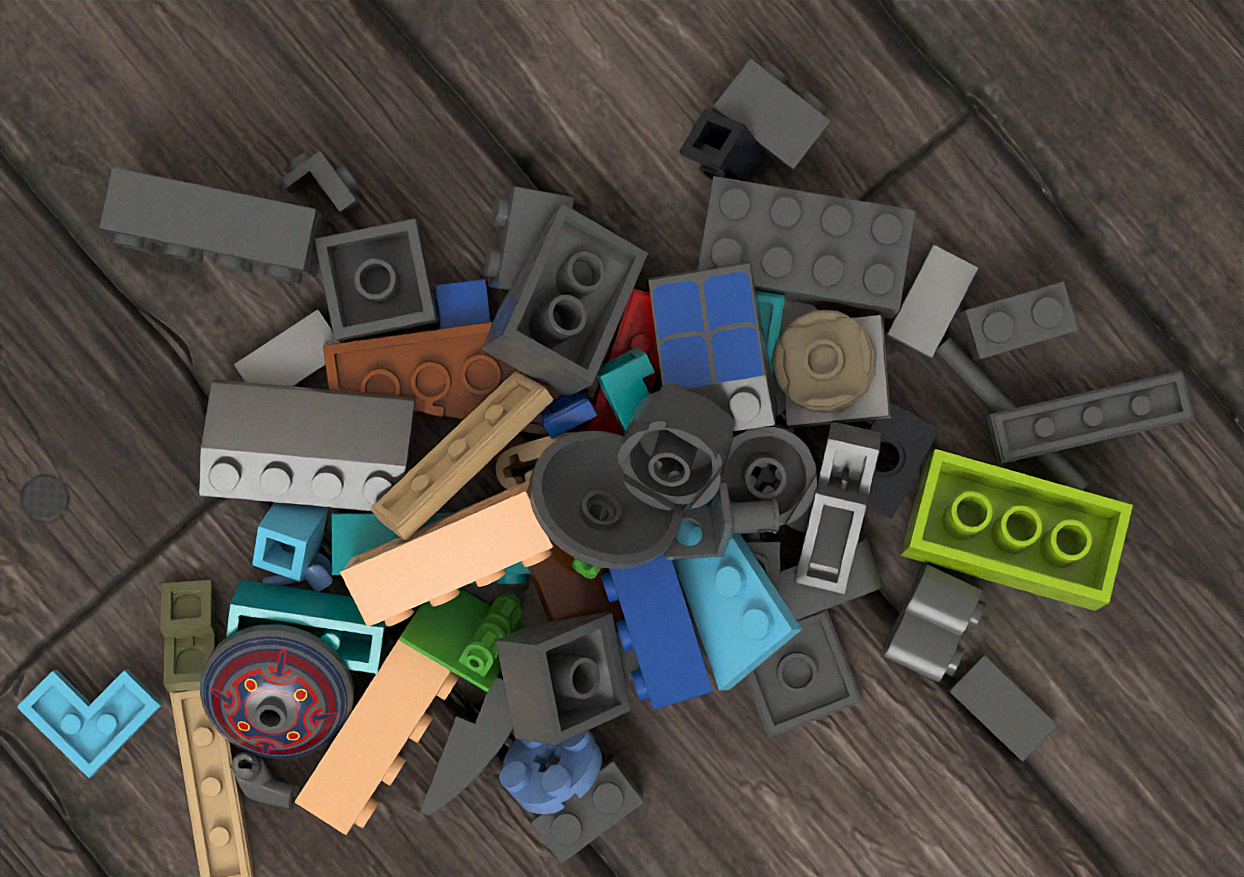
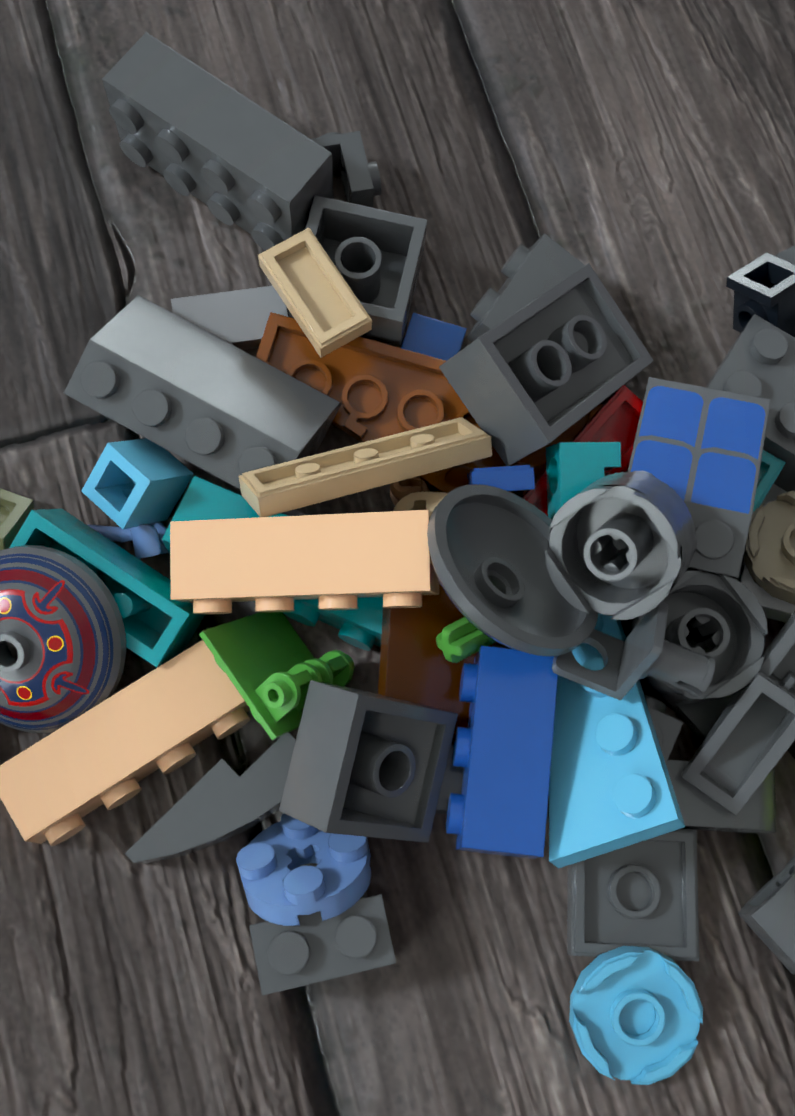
camera: 20 degrees right, 15 degrees down
(355, 329) = (315, 292): none -> tan tile
(830, 758) = (635, 1015): none -> medium azure tile

